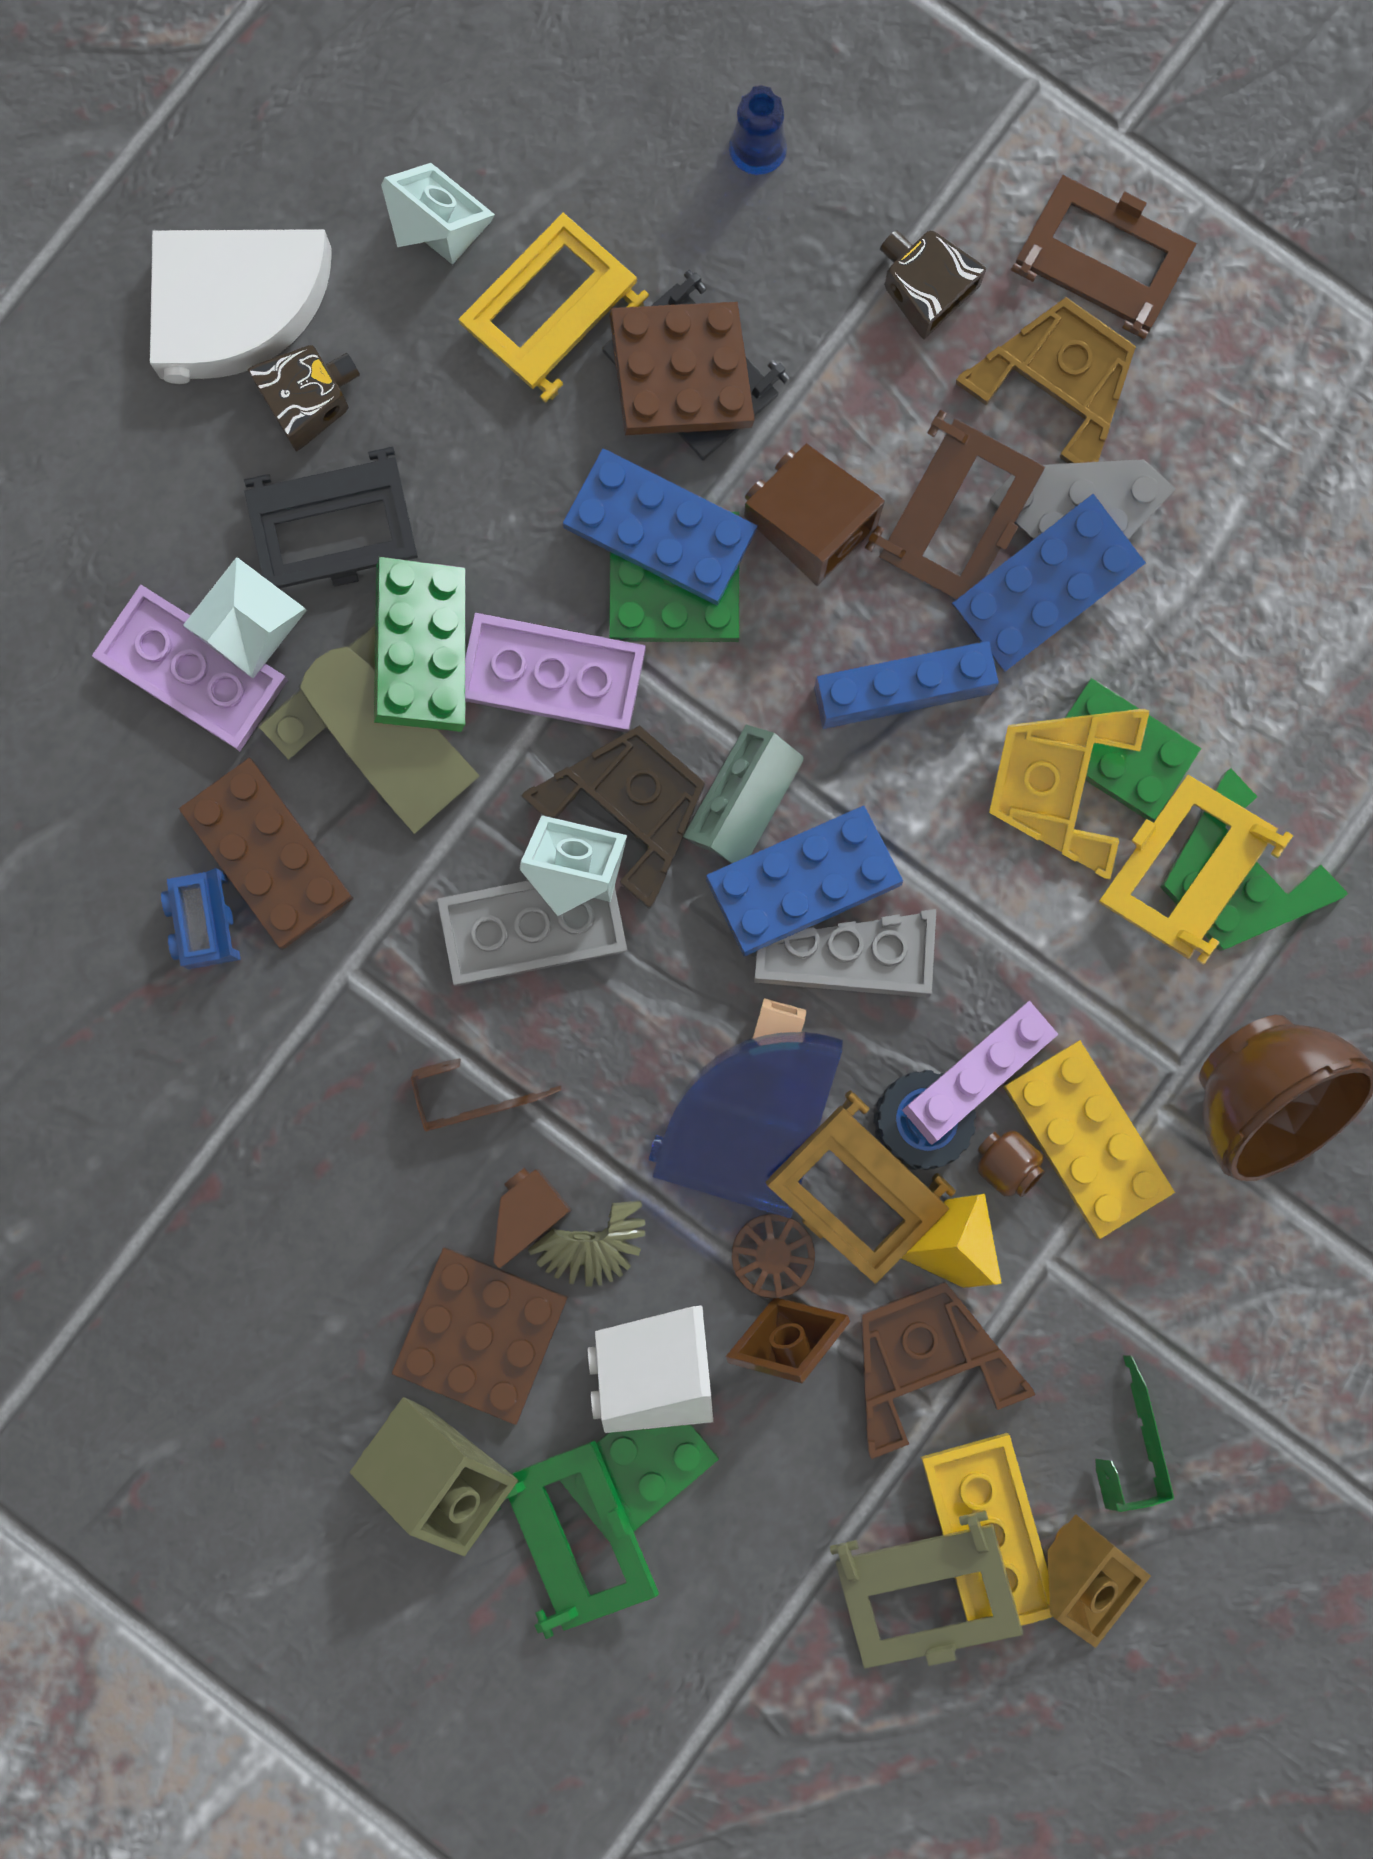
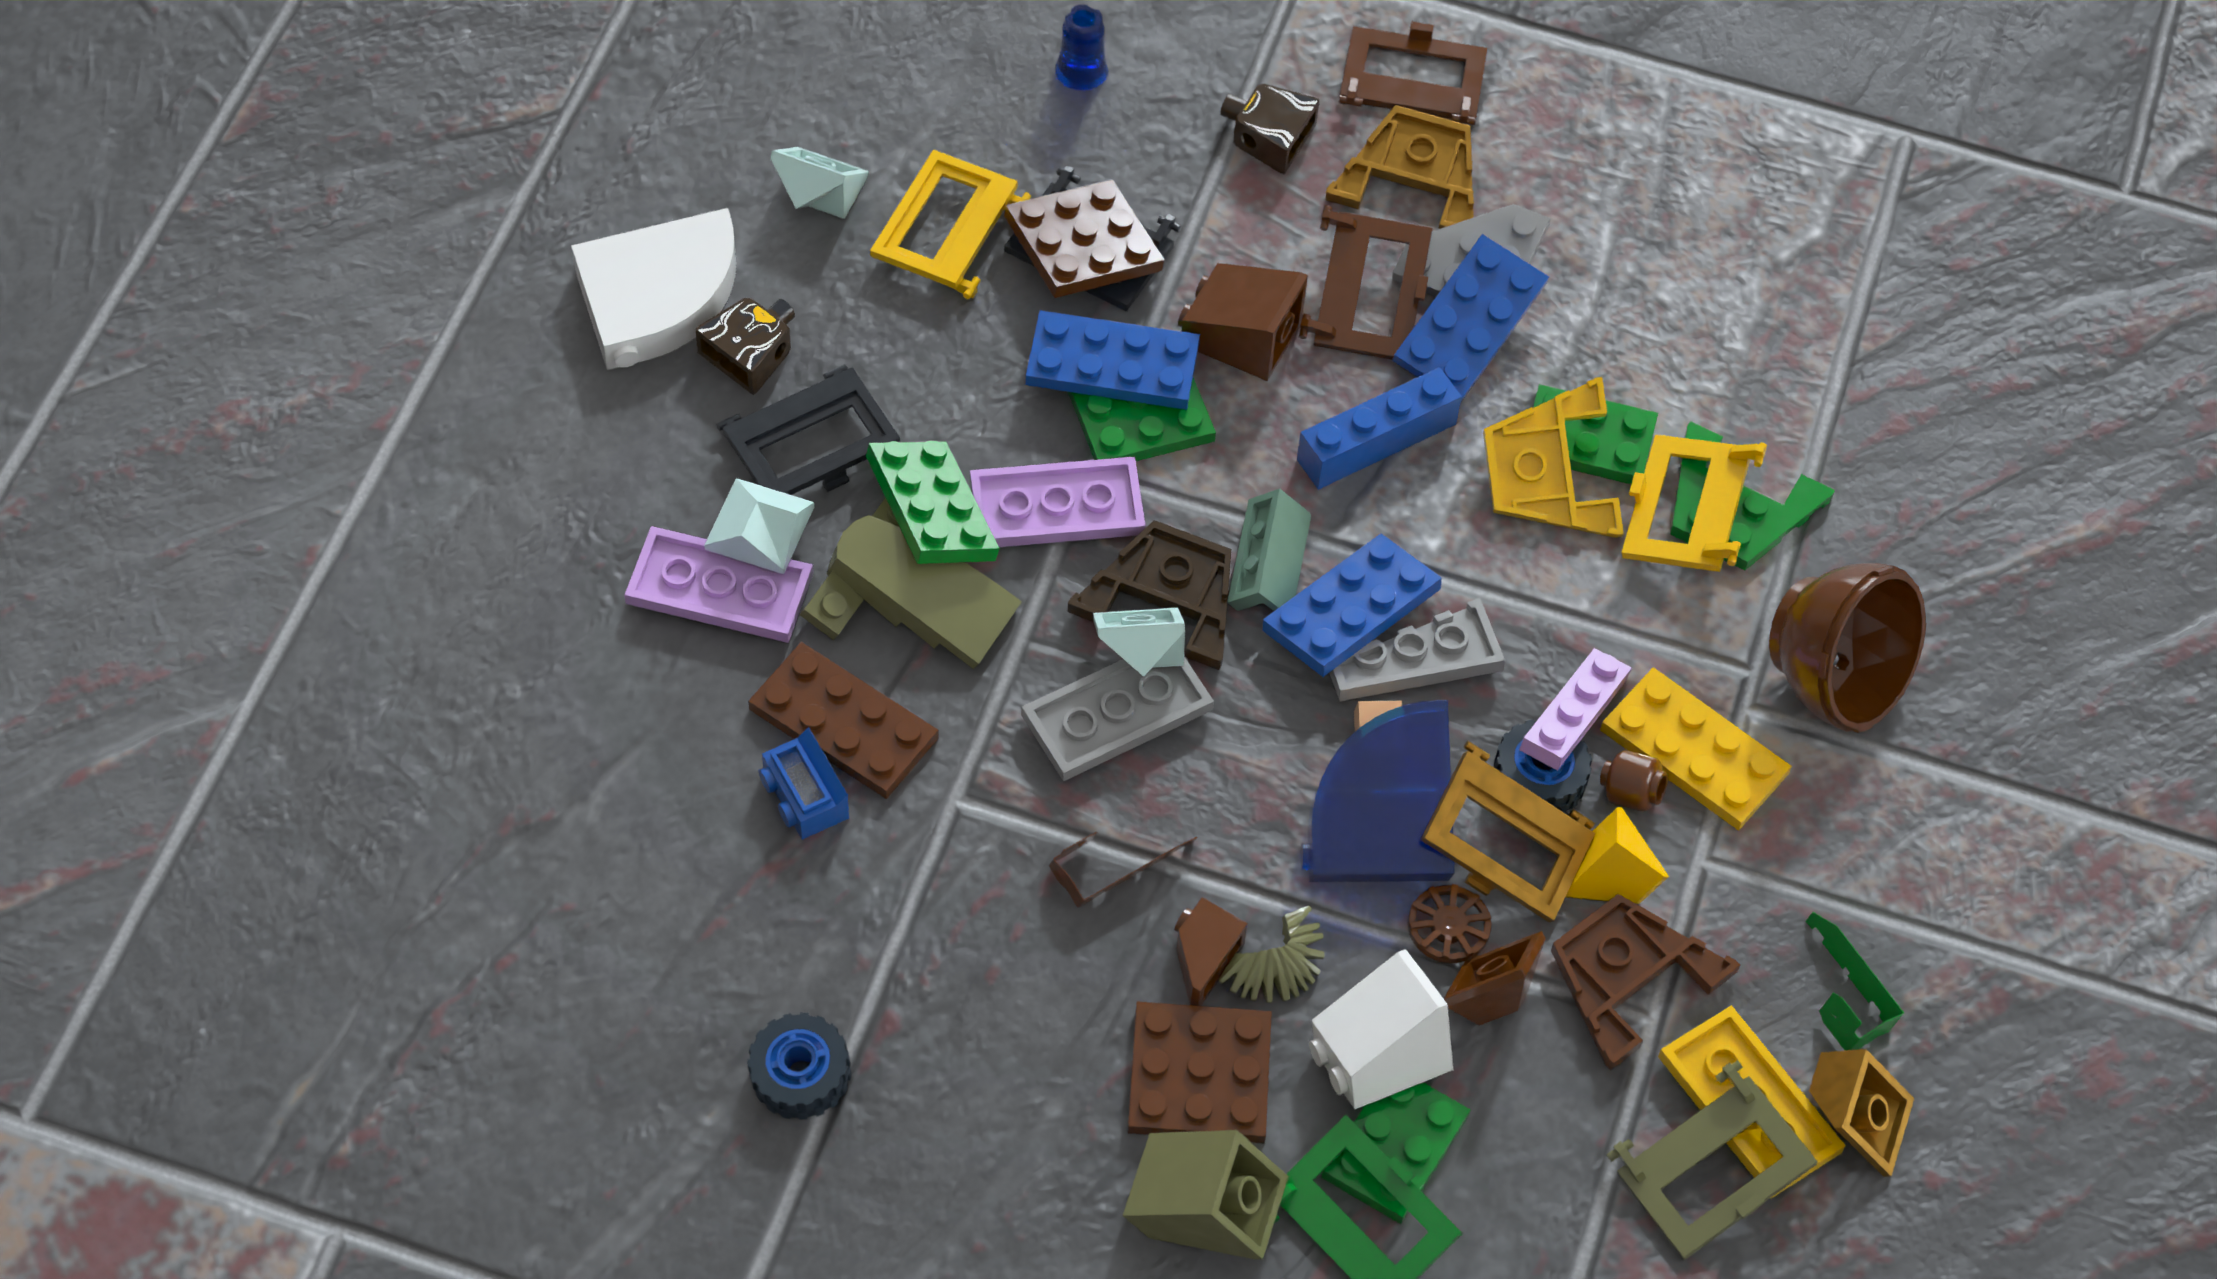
camera: 20 degrees left, 25 degrees down
(78, 1217) = (794, 1040): none -> black wheel

